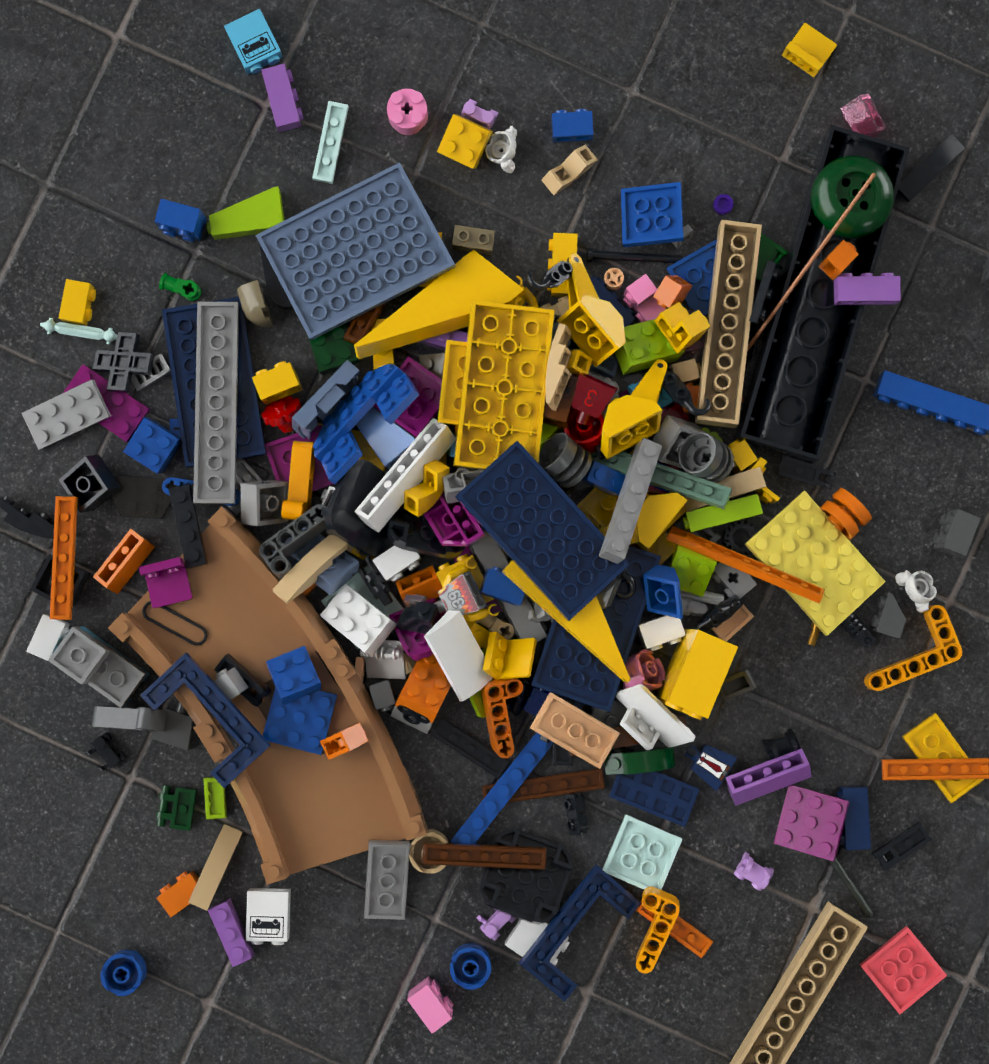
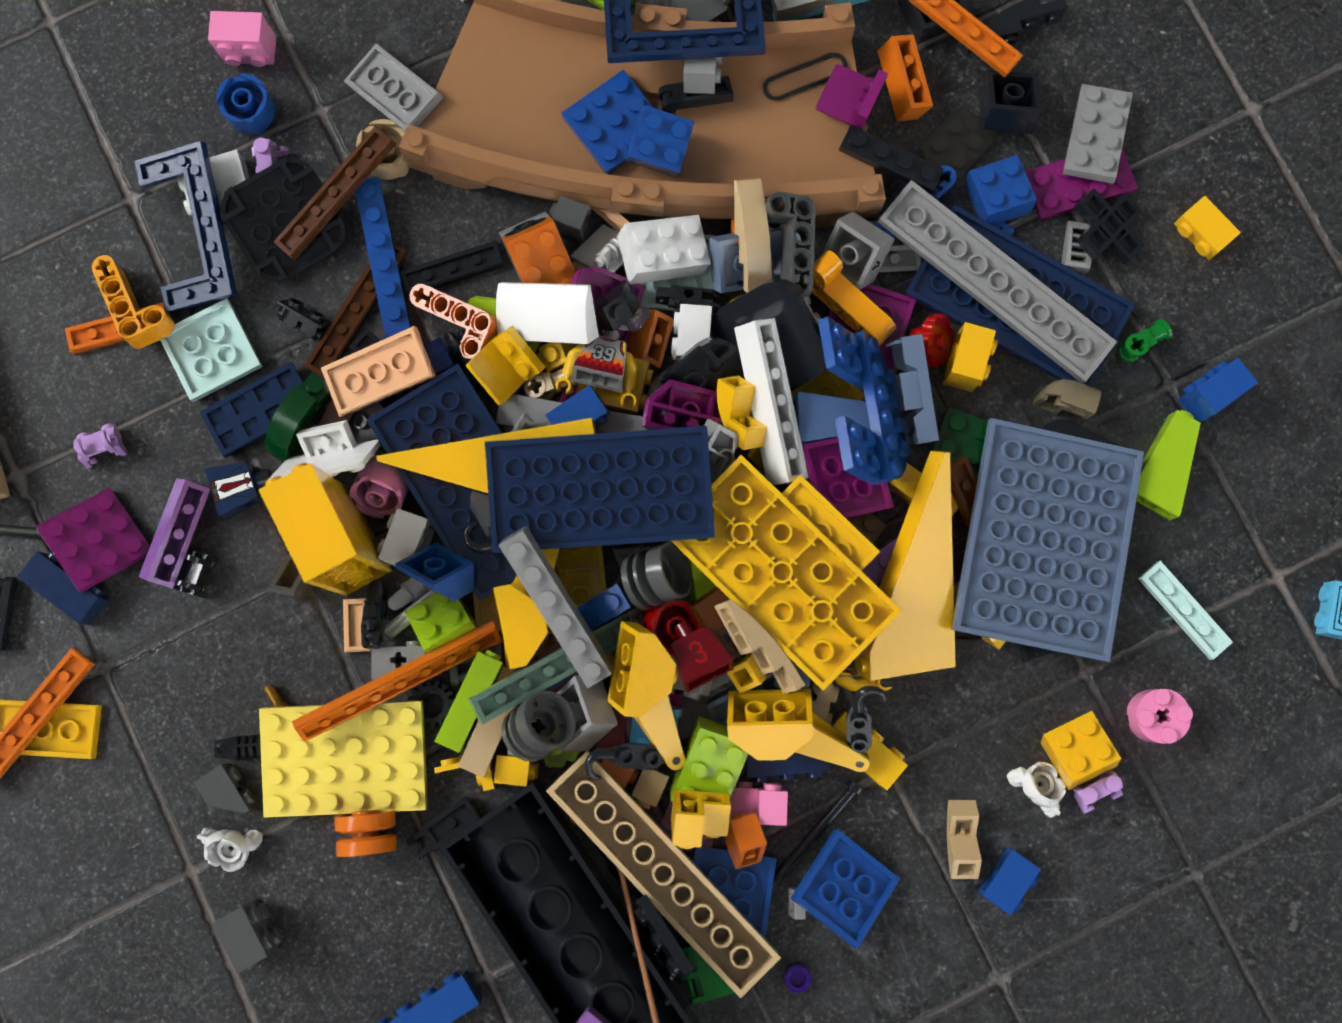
camera: 135 degrees right, 5 degrees down
(79, 330) = (1174, 210): light aqua wheel -> none
(282, 97) = (1272, 597): medium lavender brick -> none
(344, 741) = (554, 139): orange brick -> none
(472, 238) = (966, 675): dark tan brick -> none
(614, 275) = (813, 792): light nougat wheel -> none
(921, 659) = (158, 791): light orange beam -> none

